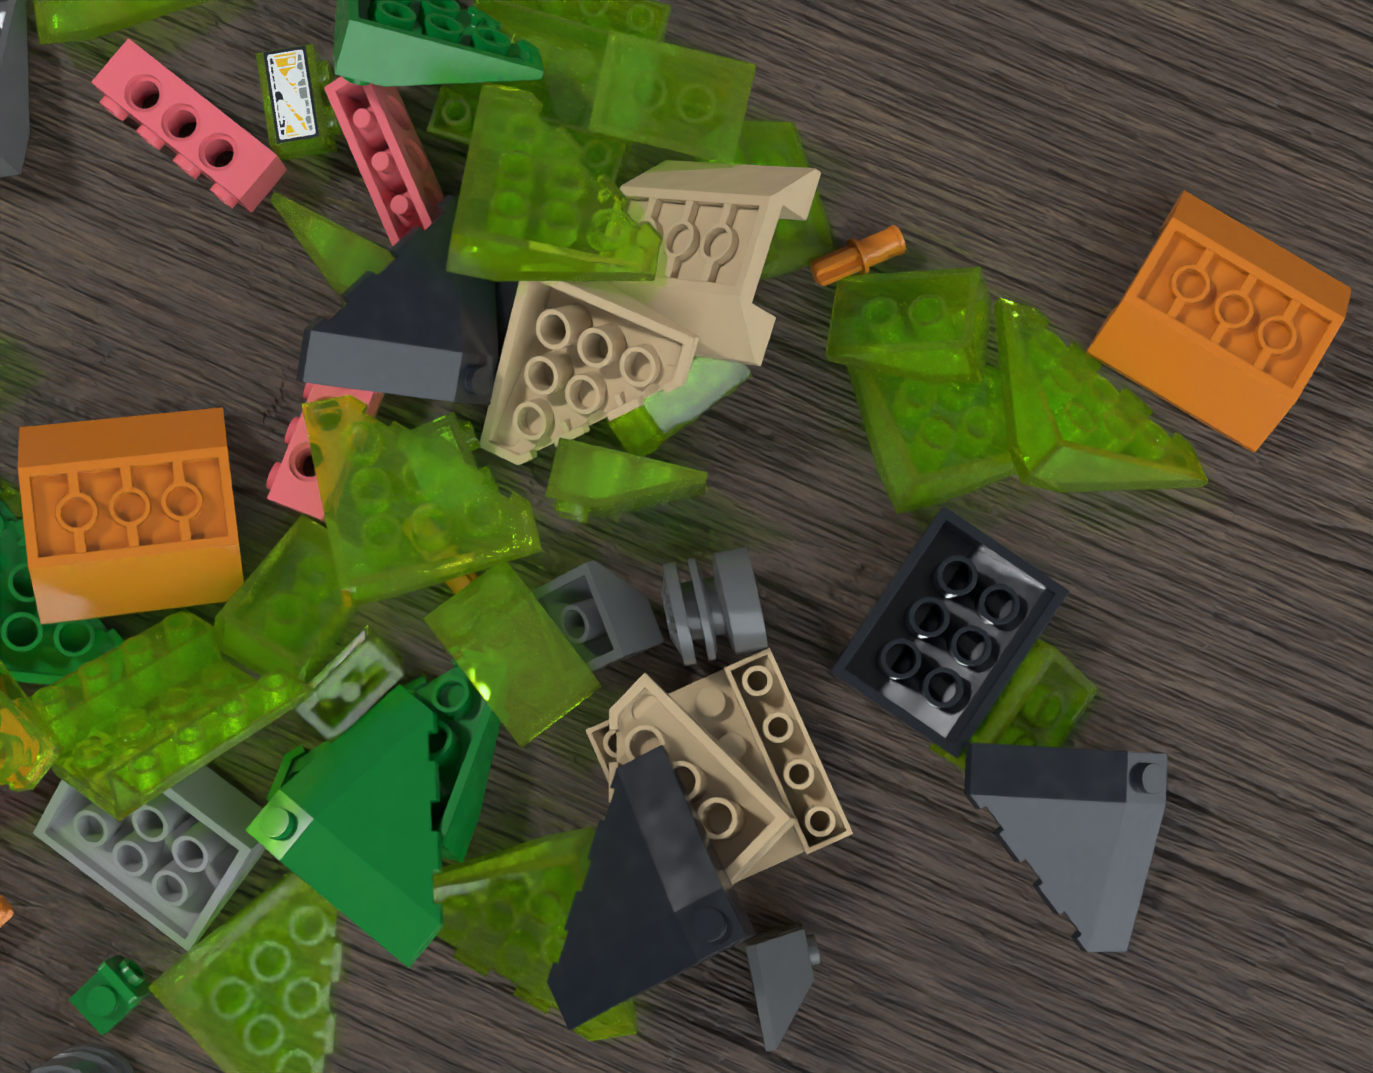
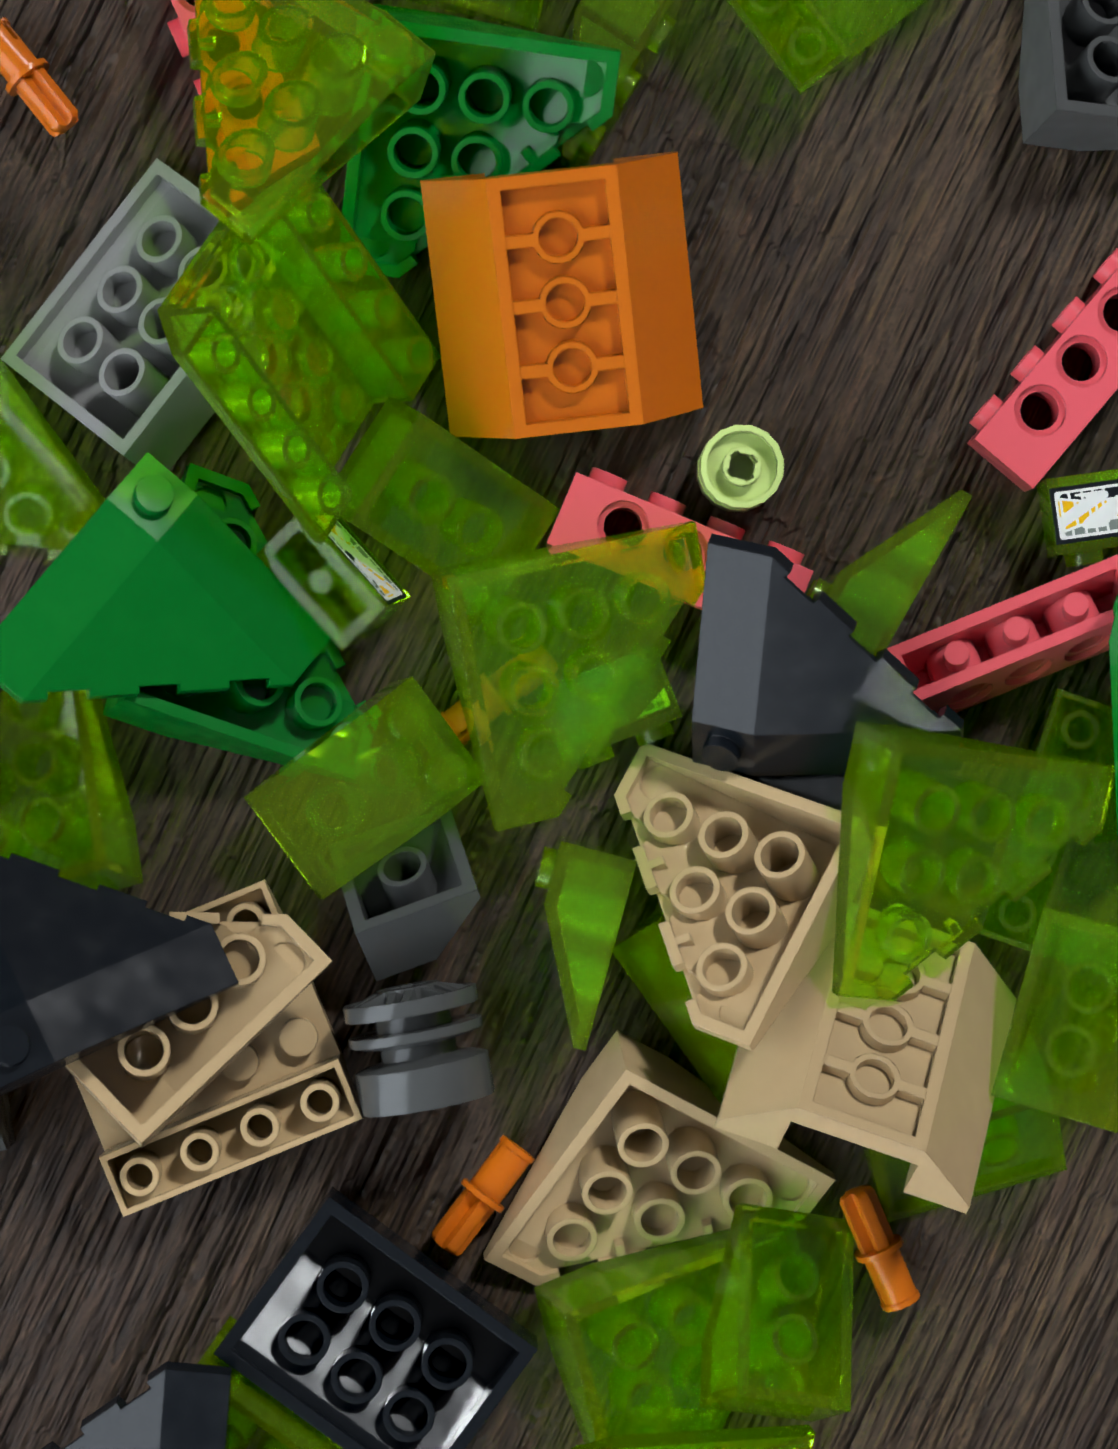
camera: 90 degrees right, 5 degrees up
(264, 376) = (740, 468): none -> yellowish green wheel
(801, 436) = (641, 1169): none -> tan slope
(829, 557) = (481, 1196): none -> orange axle

